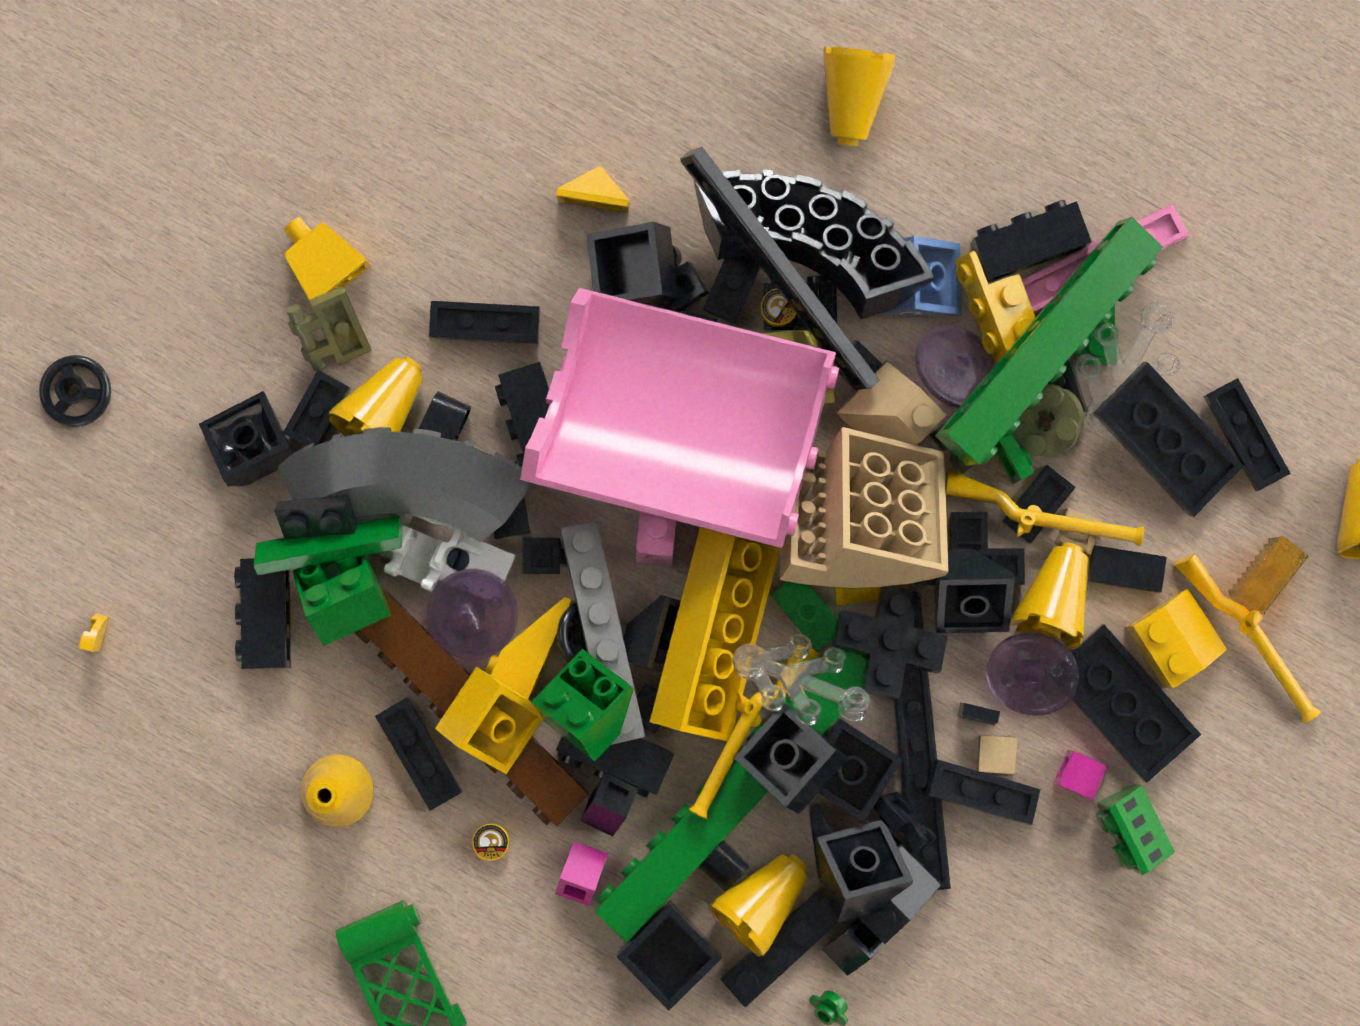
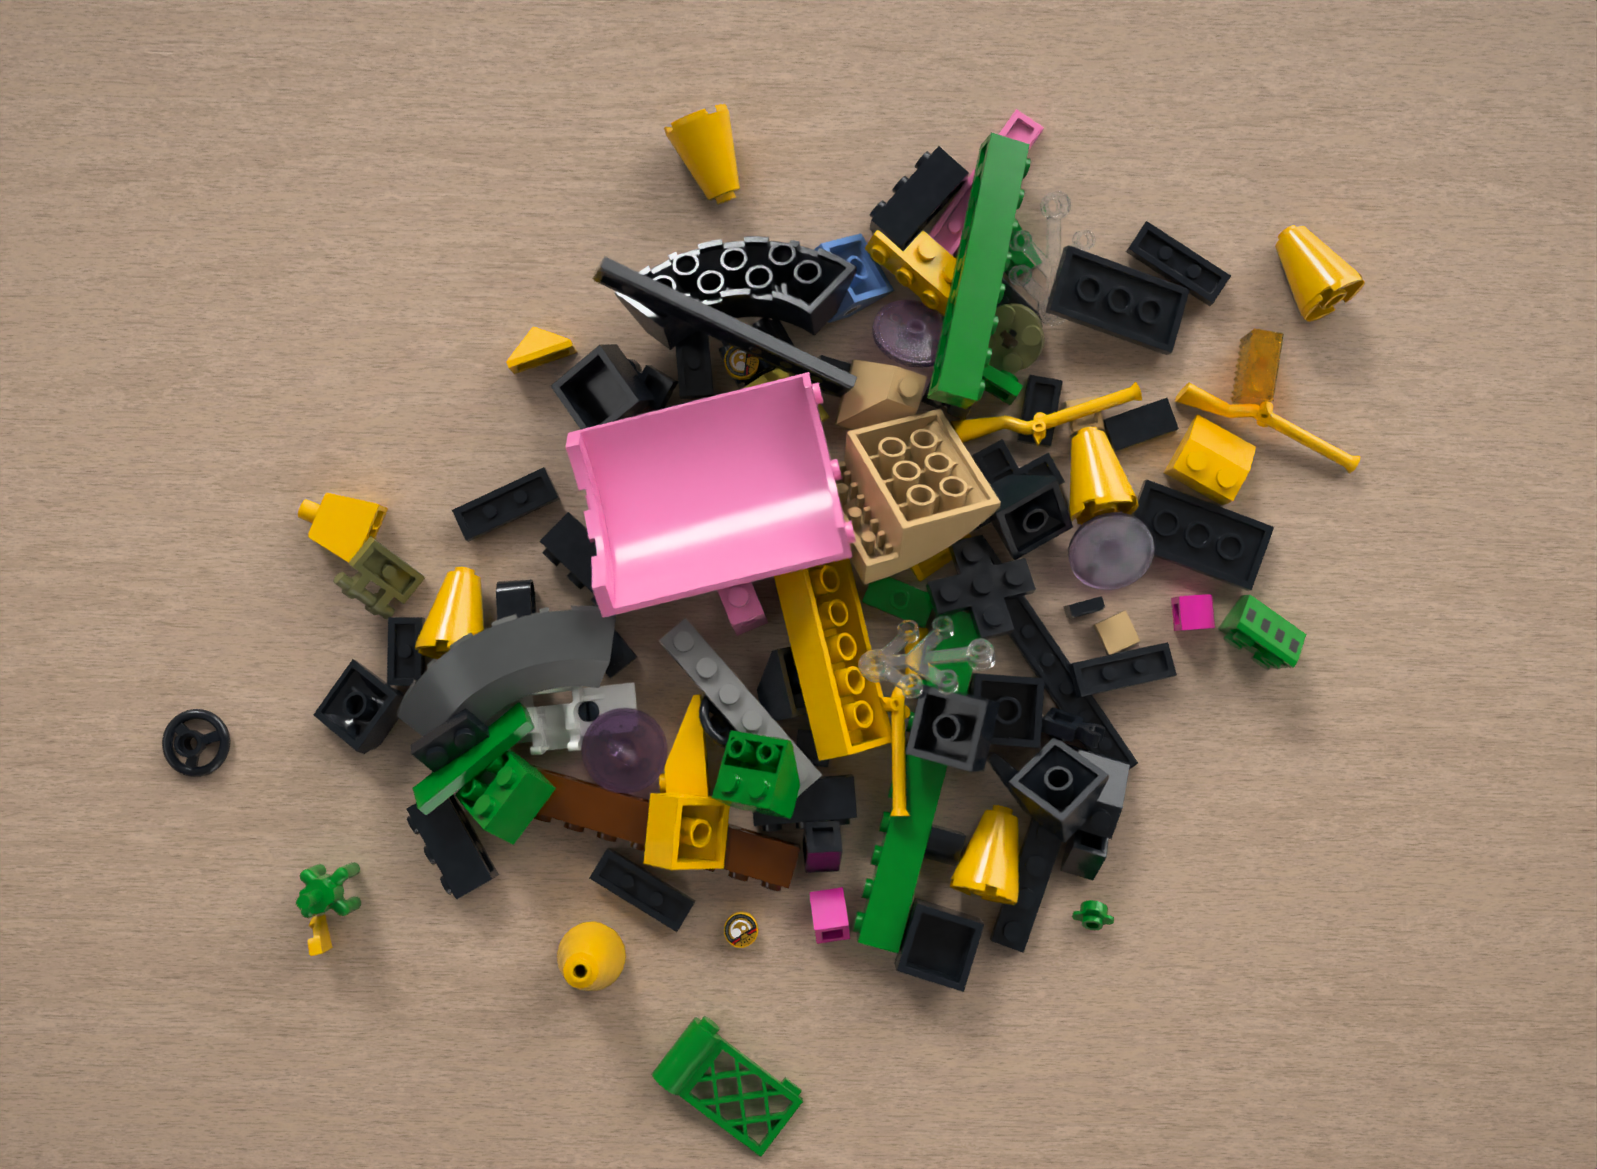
camera: 30 degrees left, 0 degrees up
(126, 596) = (327, 891): none -> green plant
(542, 555) = (656, 671): black plate -> none

